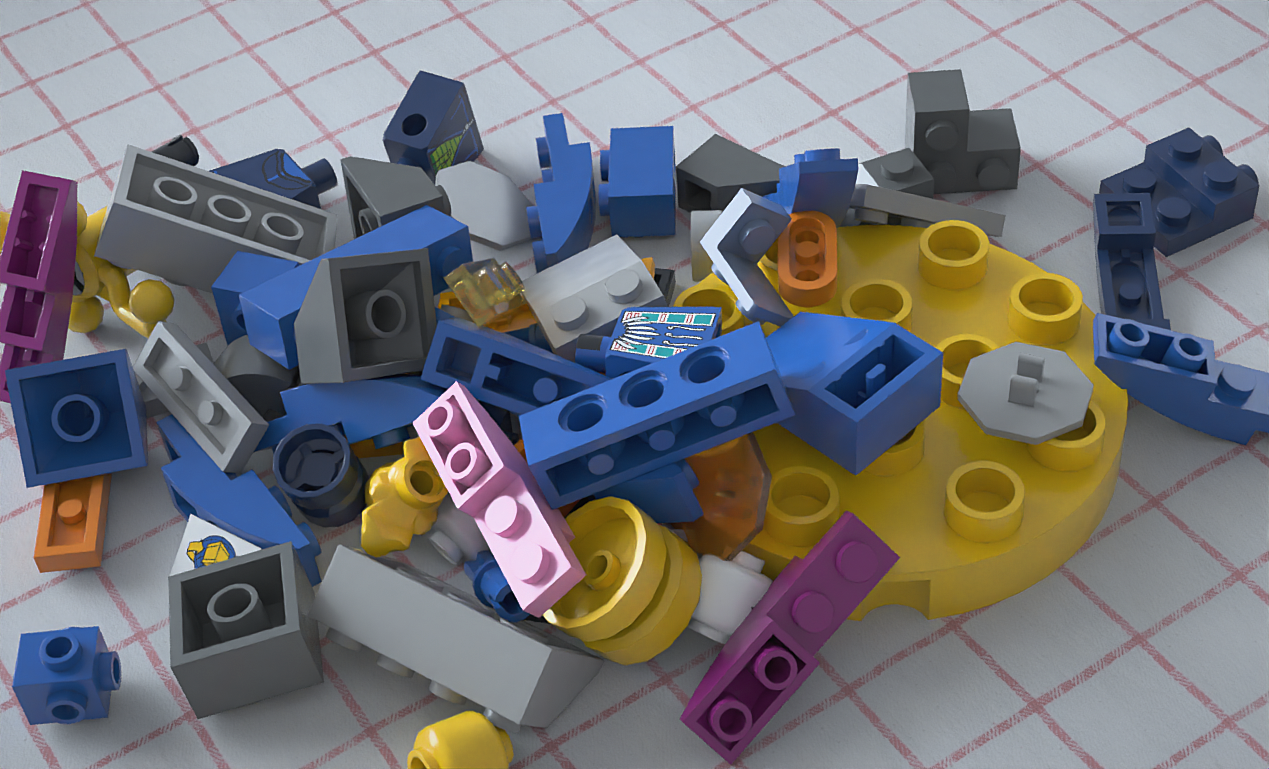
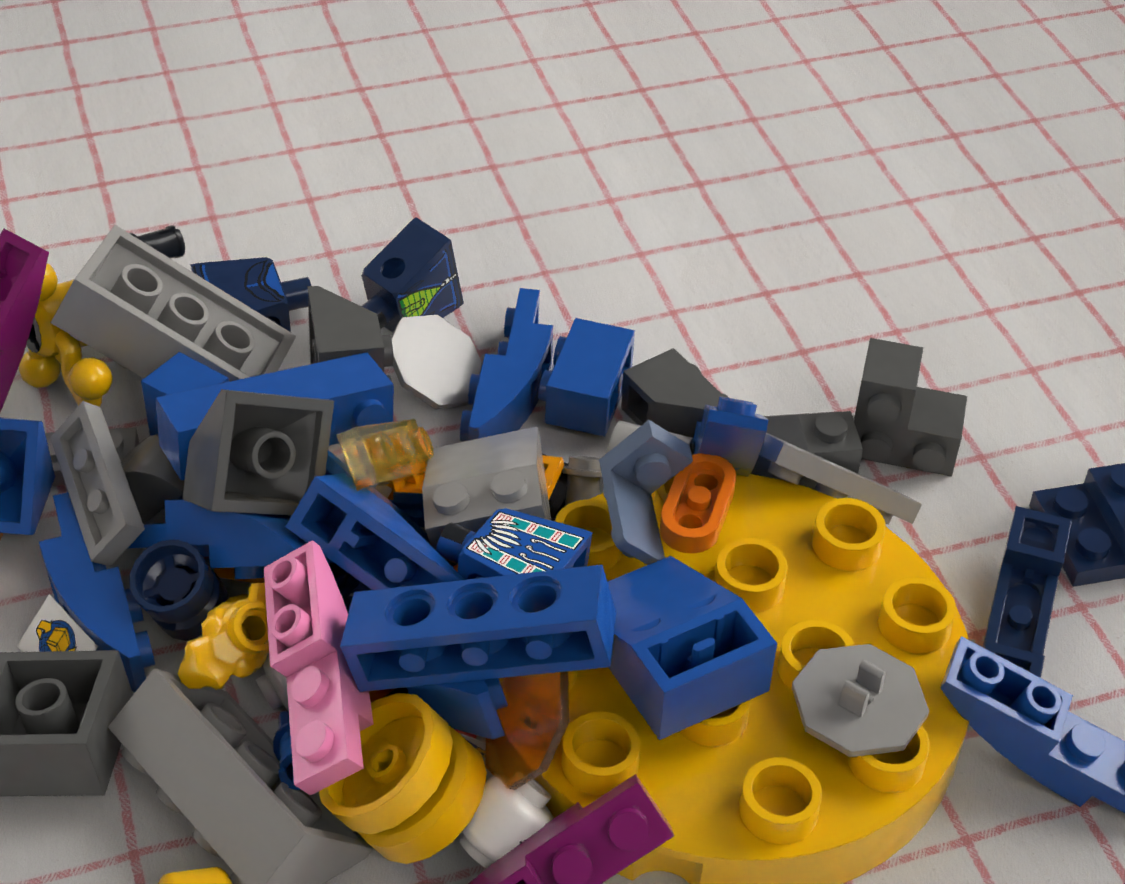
camera: 10 degrees right, 0 degrees up
(675, 274) = (582, 478): none -> light grey pin

